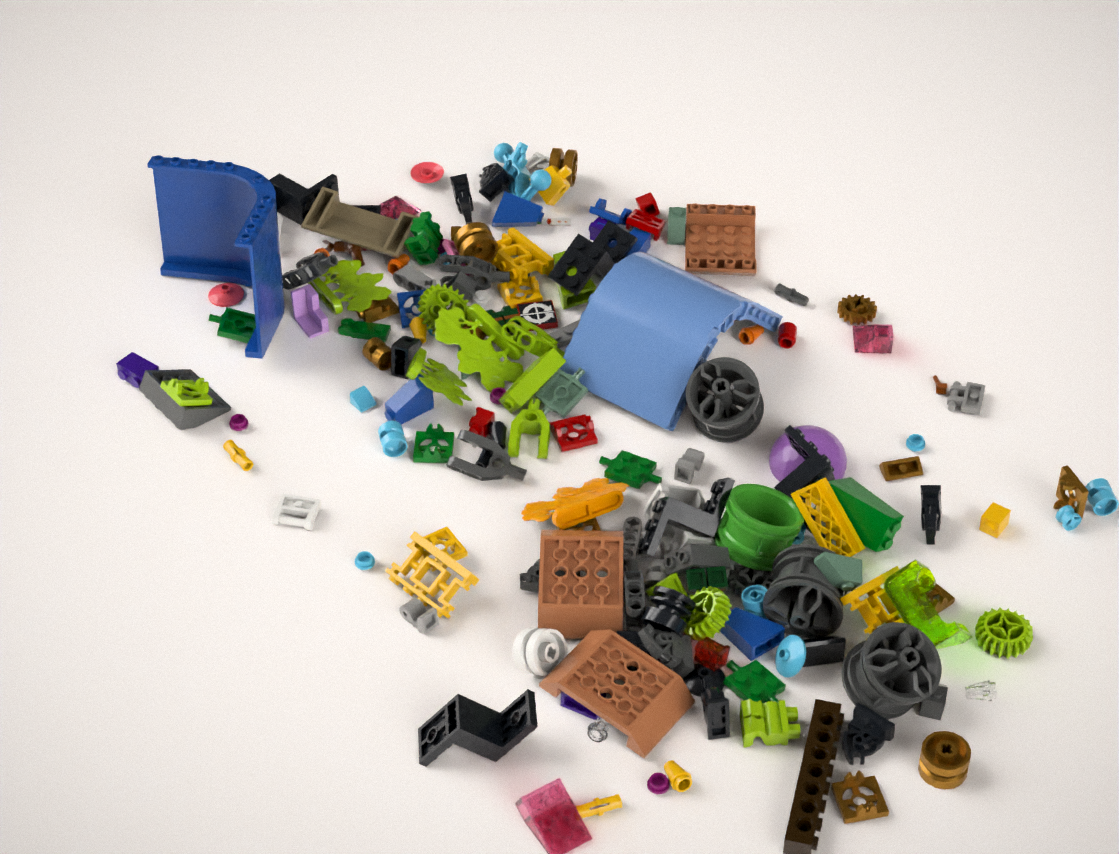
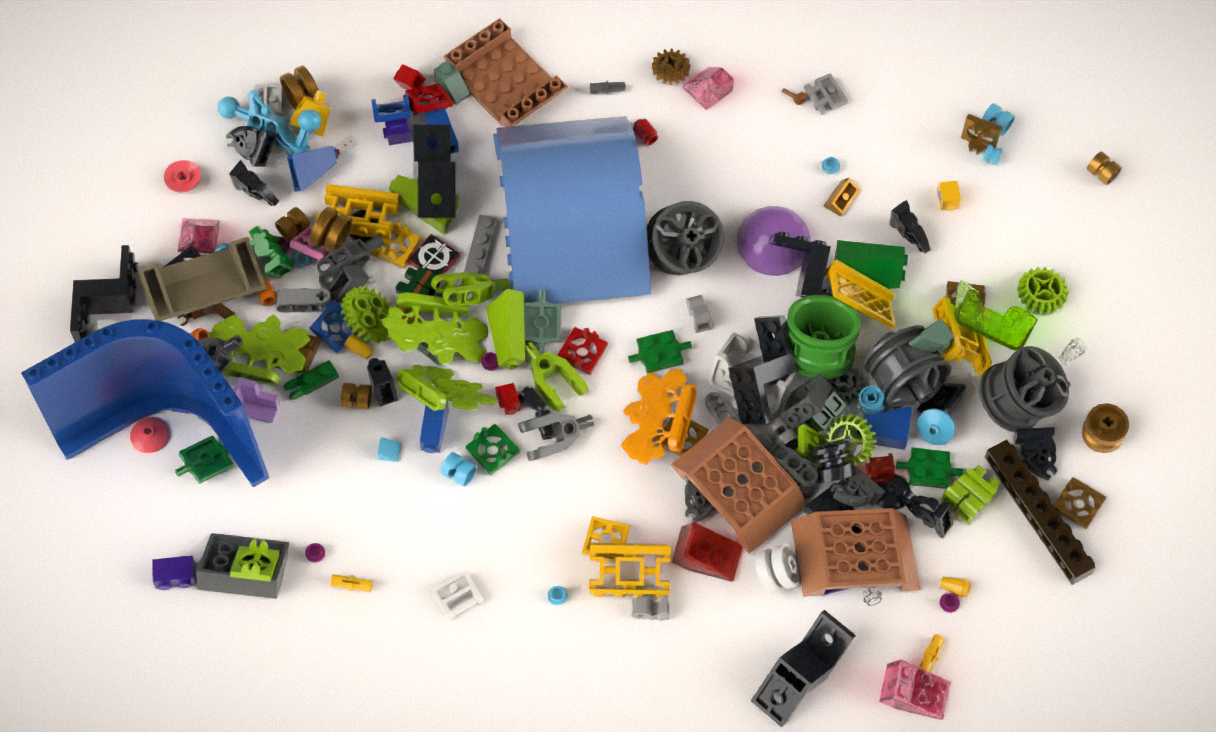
camera: 45 degrees left, 20 degrees up
(503, 609) = (706, 552): none -> clear red slope

